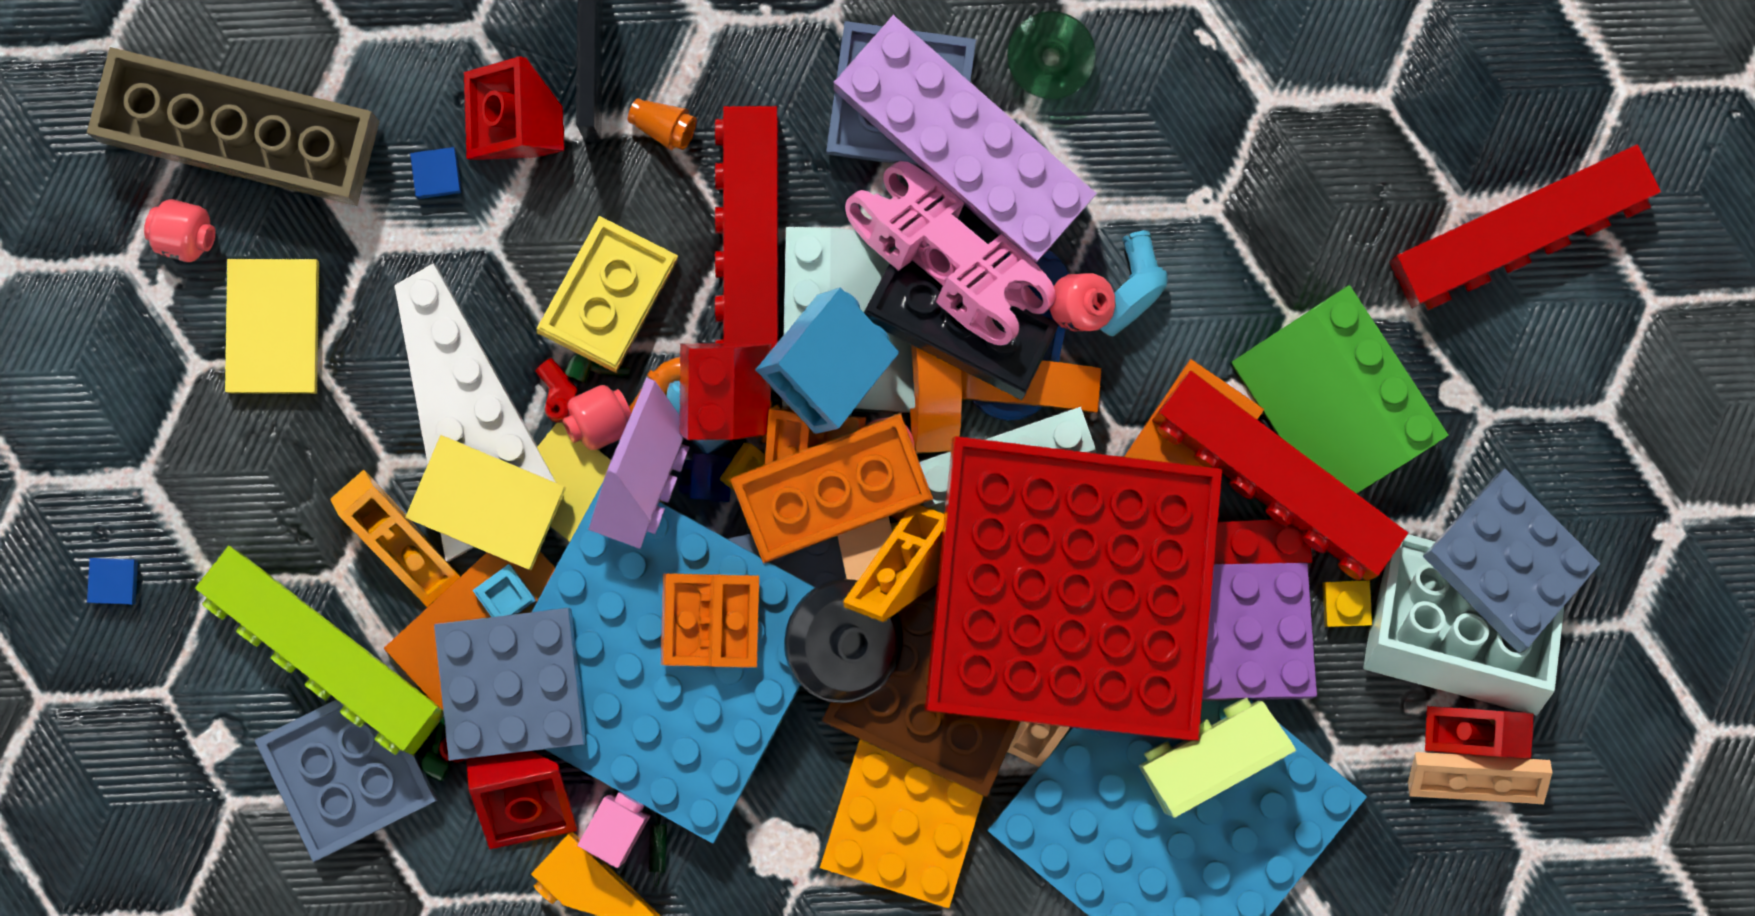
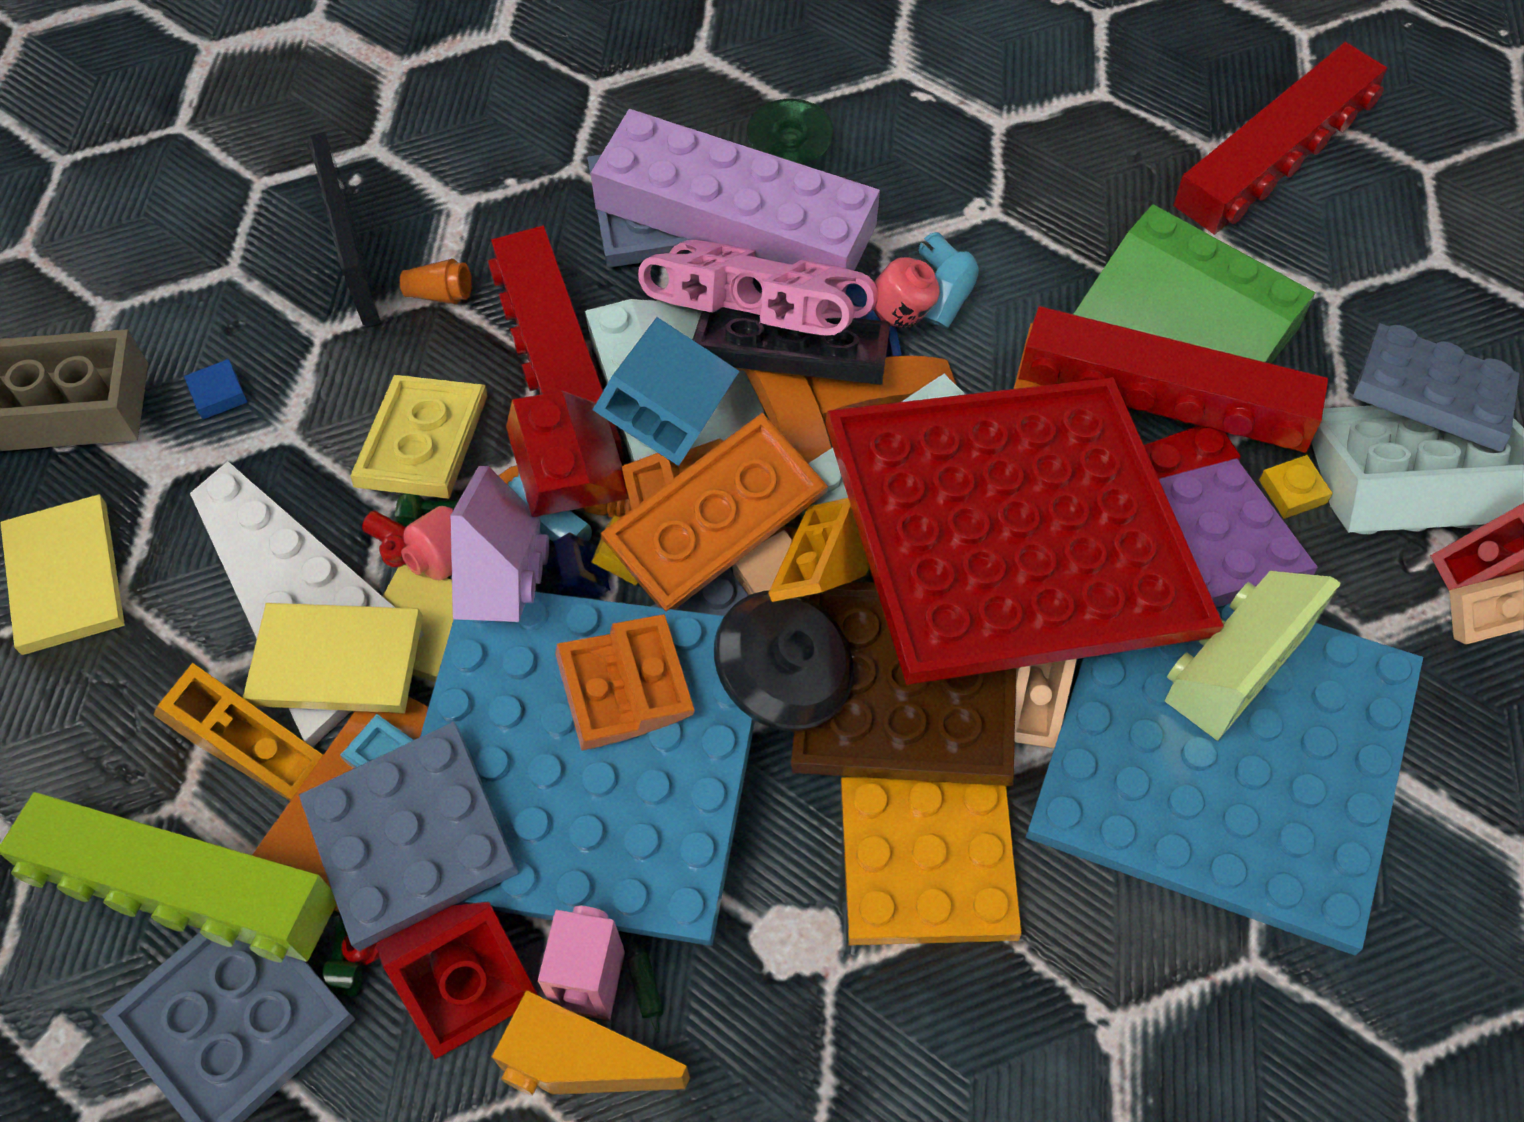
camera: 10 degrees left, 25 degrees down
(510, 112) = (281, 312): red slope -> none

